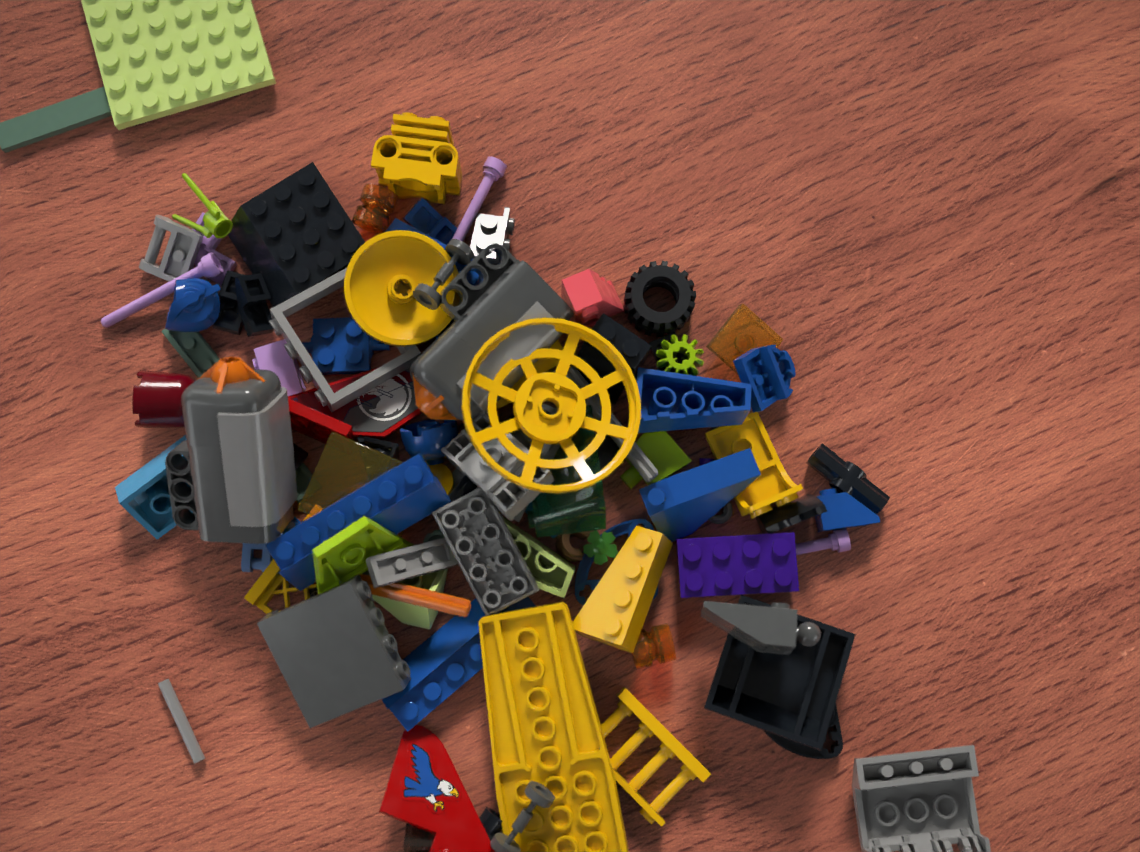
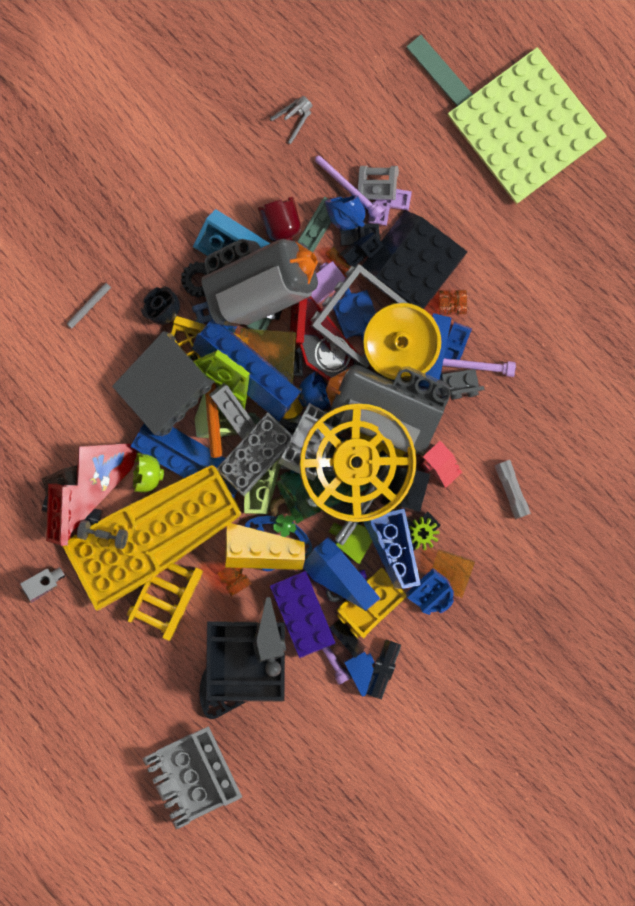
camera: 75 degrees right, 5 degrees up
(24, 319) = (299, 106): none -> light grey plant
(198, 564) = (187, 276): none -> black tyre
(214, 220) = (406, 204): lime plant -> none
(221, 614) = (161, 306): none -> black cylinder
(246, 347) = (338, 260): none -> clear orange piece
(418, 158) = (498, 319): yellow piece -> none
(456, 721) = (146, 473): none -> lime cylinder
(460, 253) = (438, 368): dark grey wheel -> none
(638, 221) = (517, 502): none -> light grey axle
(663, 277) = (472, 497): black tyre -> none

